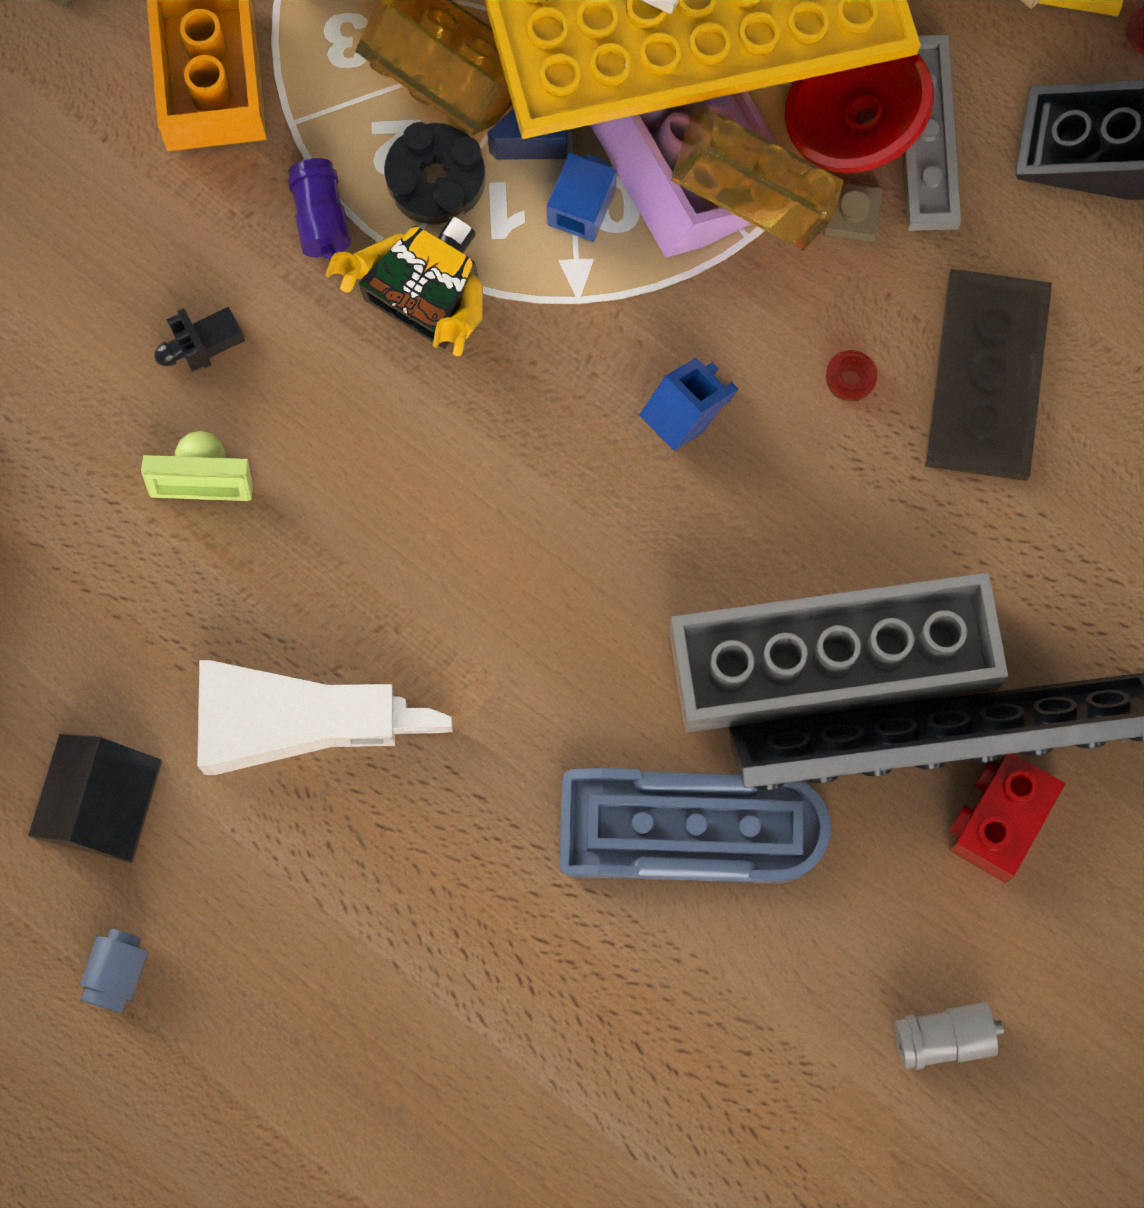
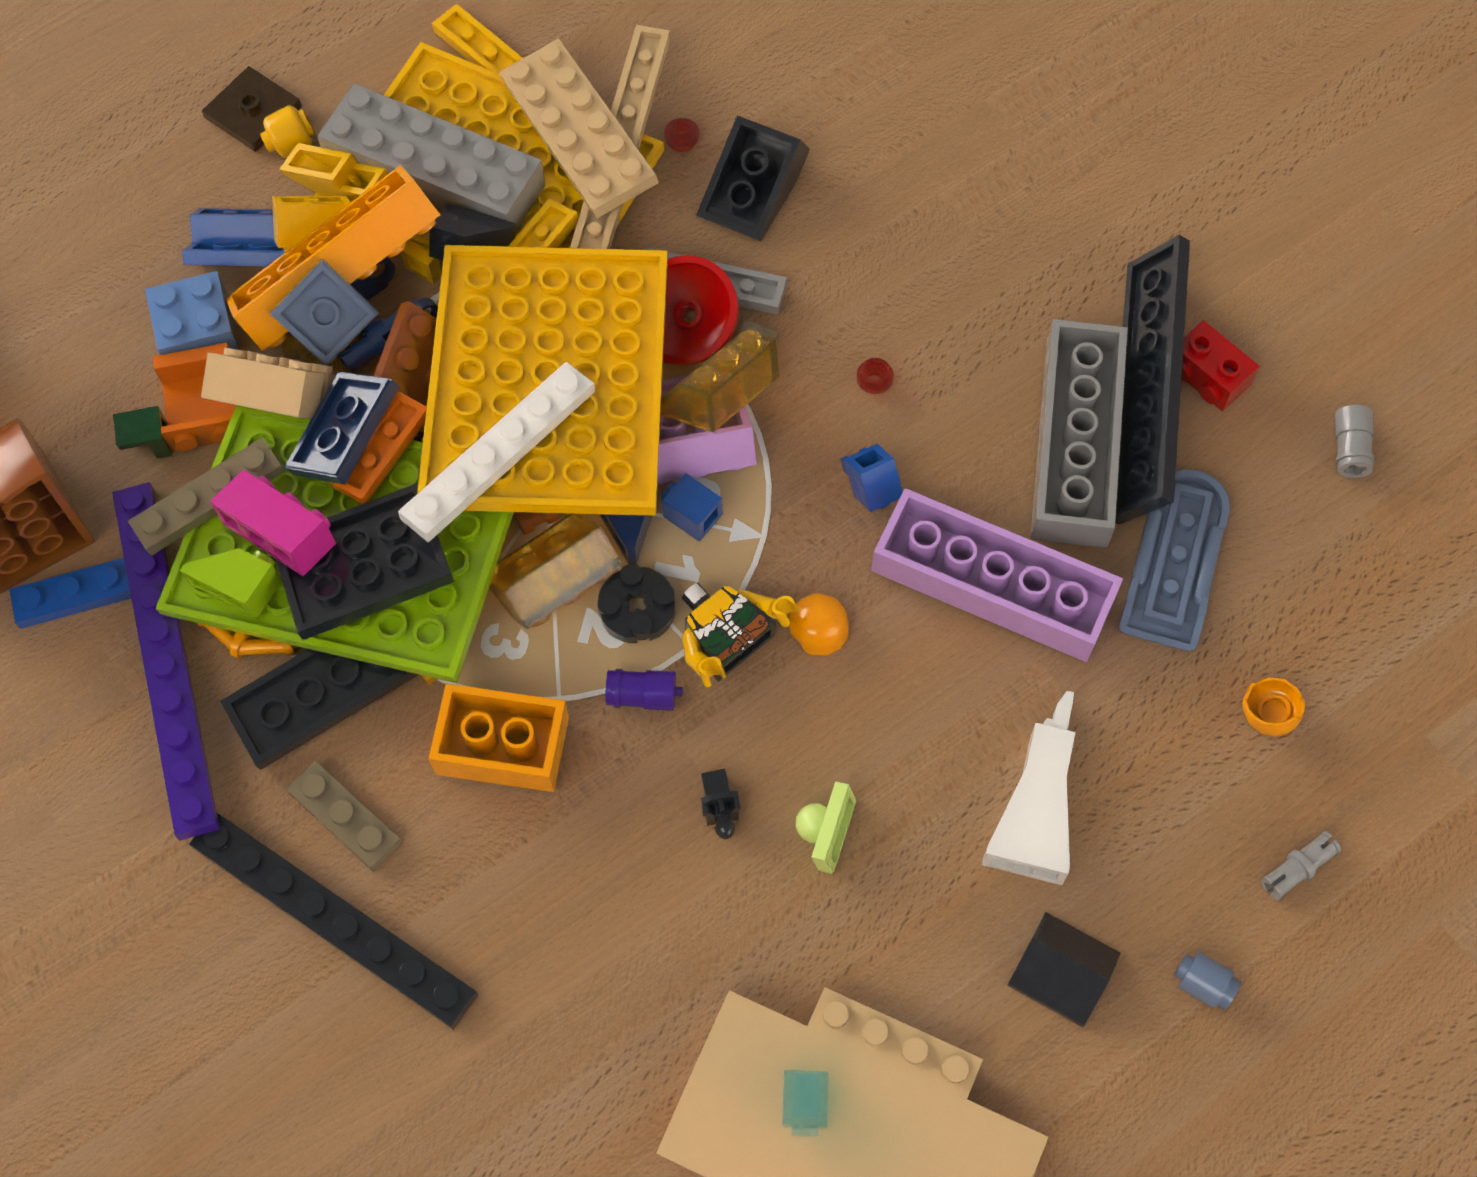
camera: 75 degrees left, 10 degrees down
(298, 1066) = (1301, 865): none -> light grey pin
(469, 396) = (820, 625): none -> light orange hair
(504, 988) = (1273, 706): none -> light orange hair
(588, 591) = (995, 574): none -> lavender brick
(988, 375) = (896, 296): clear smoke tile -> none

